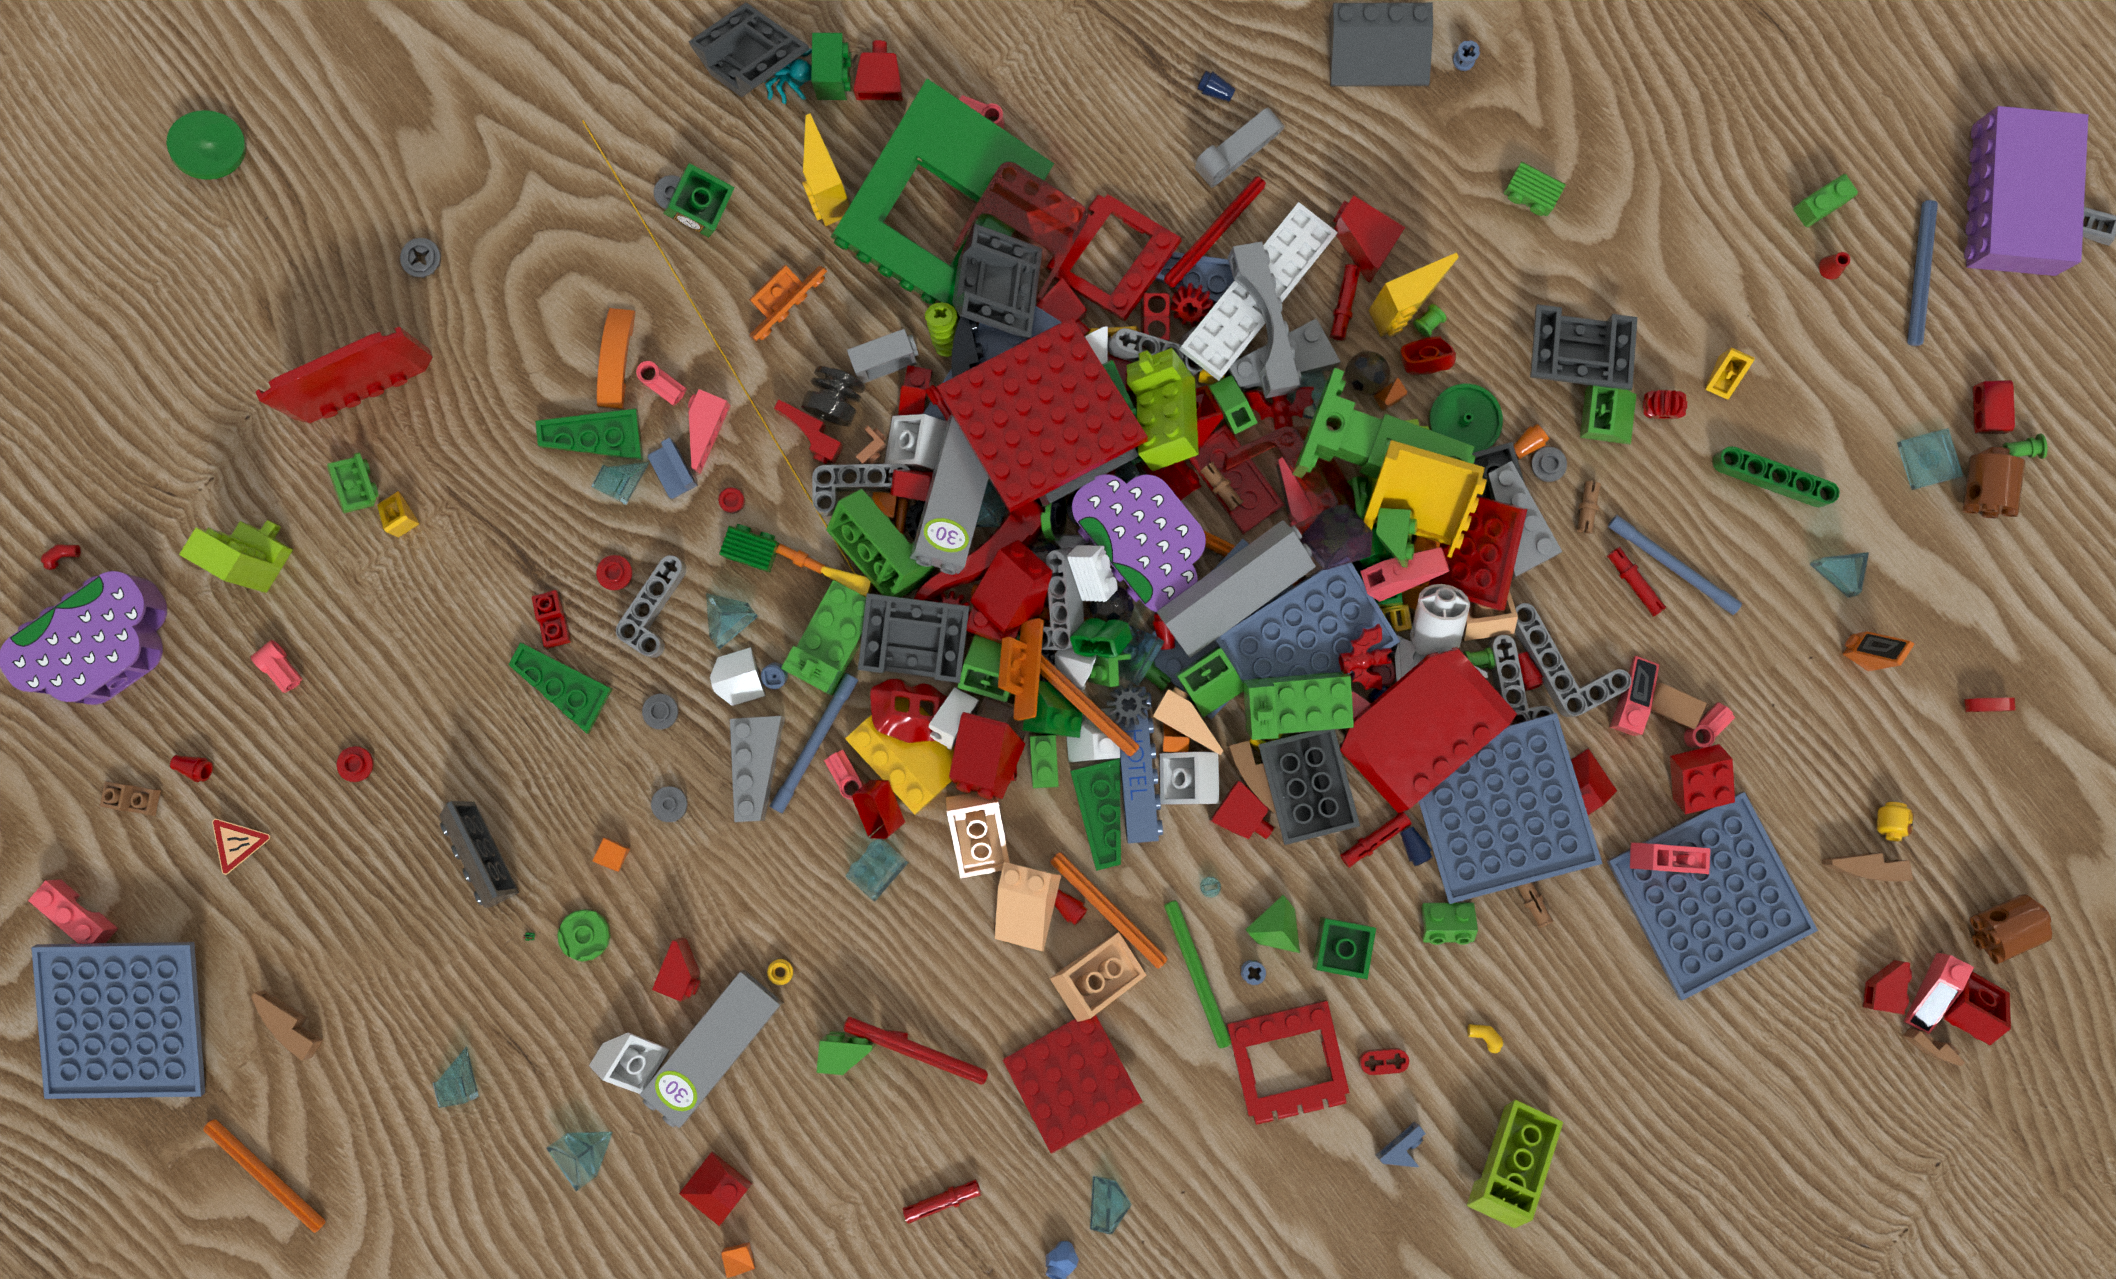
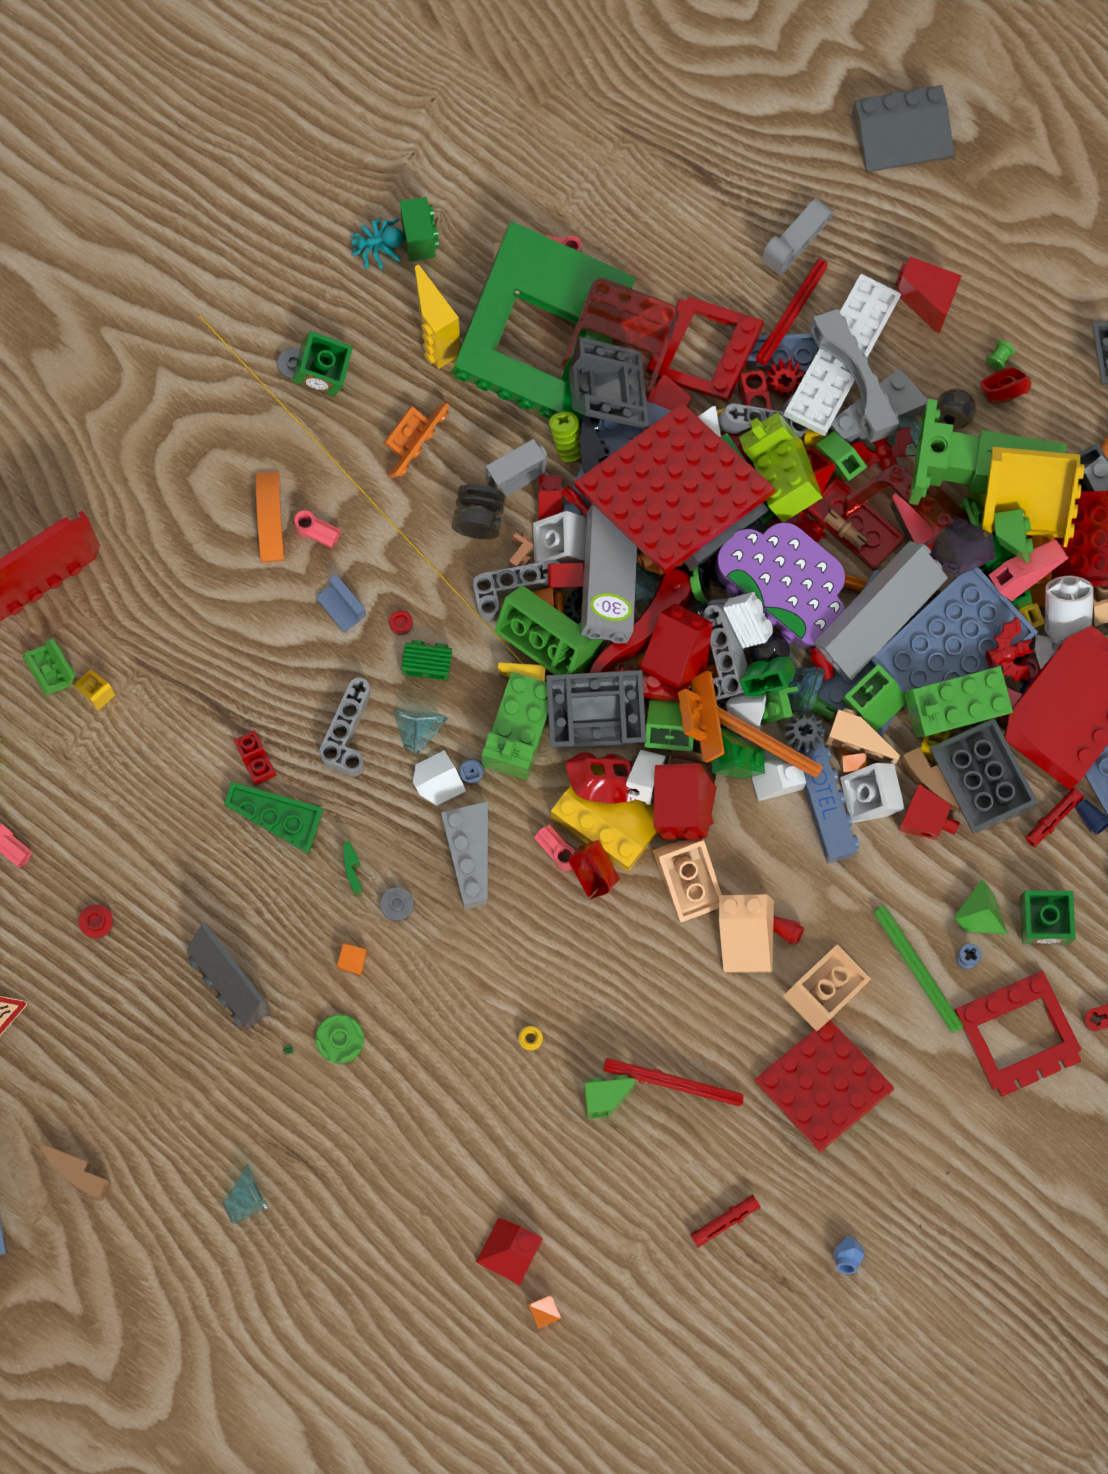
camera: 10 degrees left, 10 degrees down
(264, 1175) = (78, 1318): orange axle -> none
(409, 258) = (74, 449): flat silver gear -> none
(580, 1155) = (376, 1242): clear light blue slope -> none
(598, 433) = (263, 585): green wing -> none
(614, 572) = (305, 705): red piece -> none
(620, 480) = (293, 624): clear light blue slope -> none
(628, 749) = (351, 863): none -> green slope
(628, 1061) = (406, 1143): white slope -> none
(660, 711) = (372, 822): flat silver piece -> none
(678, 972) = (438, 1052): red slope -> none
(705, 421) = (364, 554): coral slope -> none
(710, 1049) = (480, 1120): light grey brick -> none
(746, 49) = (339, 228): dark grey slope -> none
(786, 791) = (504, 871): sand blue piece -> none
(800, 558) = (475, 662): orange bar -> none
(822, 446) = (477, 559): red slope -> none
(876, 868) = (602, 926): clear light blue bracket -> none
(878, 75) = (462, 230): red torso -> none
(1044, 761) = (736, 801): bright green brick -> none
(1099, 804) = (795, 832): green wing -> none
(1107, 1205) = (880, 1195): clear light blue slope -> none
(1108, 910) = (824, 926): orange axle -> none
(1210, 881) = (914, 893): clear light blue hinge -> none
(1215, 86) = (765, 189): dark blue cone -> none
(1343, 313) = (921, 359): red pin -> none
(1391, 394) = (982, 422): orange slope -> none
(1405, 295) = (975, 332): yellow slope -> none
(1463, 49) = (978, 120): sand blue bush -> none
(1467, 415) = (1054, 424): green piece -> none
(1534, 189) = (1067, 227): bright green brick -> none

